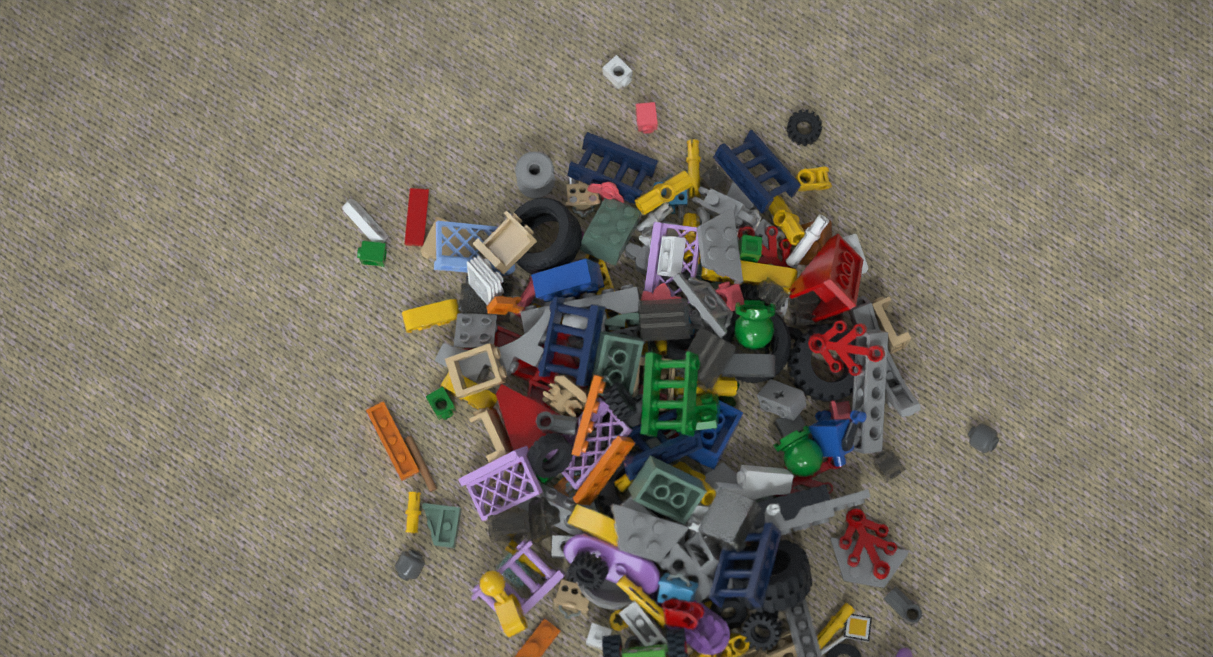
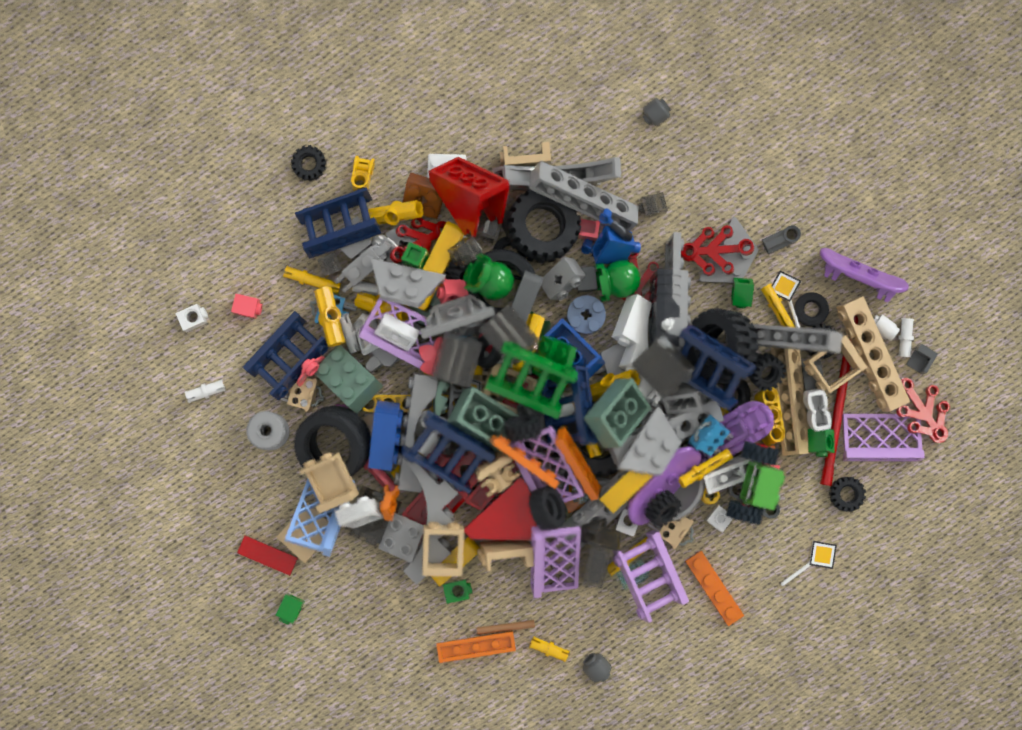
camera: 70 degrees left, 10 degrees up
(364, 221) = (263, 604): white beam -> none
(429, 315) = (369, 573): yellow beam -> none
(443, 524) = (569, 625): sand green wing -> none
(506, 606) = (669, 593): yellow beam -> none
(553, 108) = (205, 391): none -> white pin
(559, 424) = (522, 490): dark grey piece -> none
(679, 613) = (732, 439): red piece -> none
(745, 443) = (595, 310): none -> sand blue brick
(811, 235) = (421, 195): white pin -> none
(834, 584) = (742, 292): none -> green brick
(843, 347) = (541, 206): red plant -> none

